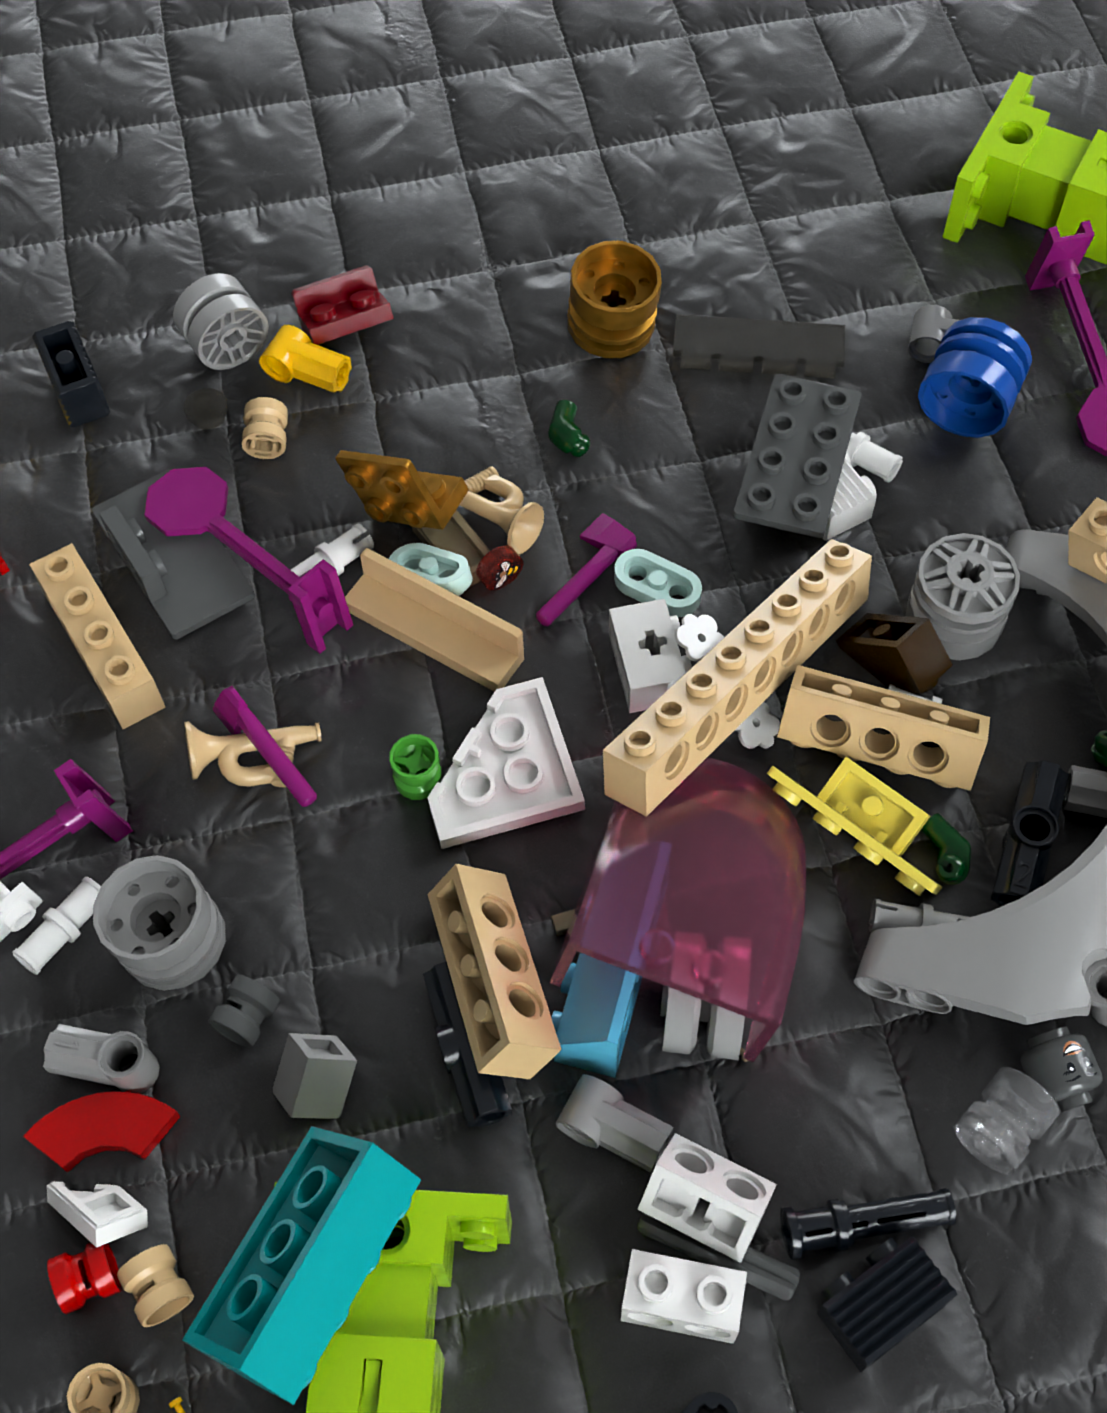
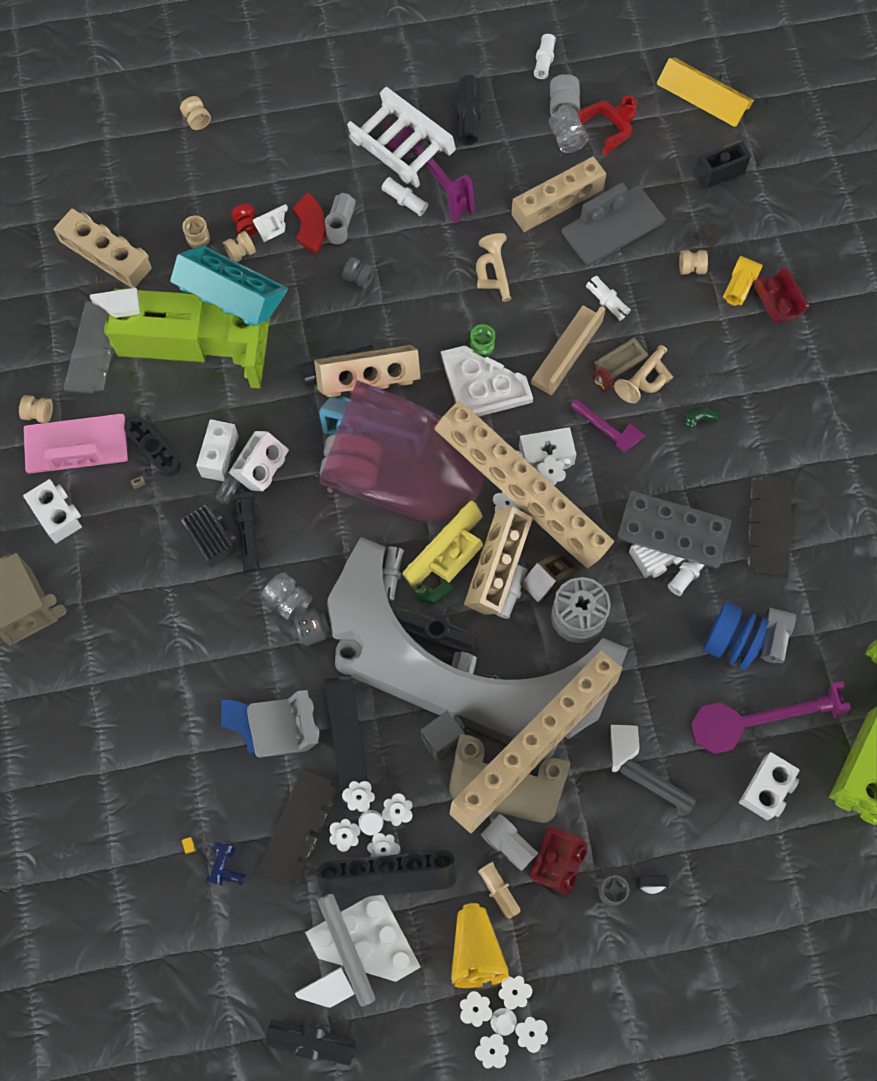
camera: 90 degrees right, 10 degrees up
(144, 903) = (397, 231): light grey wheel -> none
(196, 502) = (638, 229): magenta piece -> none
(220, 321) = (762, 232): light grey wheel -> none
(236, 717) = (491, 274): magenta piece -> none
(314, 1076) = (327, 303): light grey panel -> none
(400, 493) = (646, 333): pearl gold bracket -> none
(436, 565) = (598, 344): light aqua plate -> none
(601, 1117) = (300, 422): light grey piece -> none
(613, 299) = (794, 424): pearl gold wheel -> none
(660, 581) = (593, 459): light aqua plate -> none

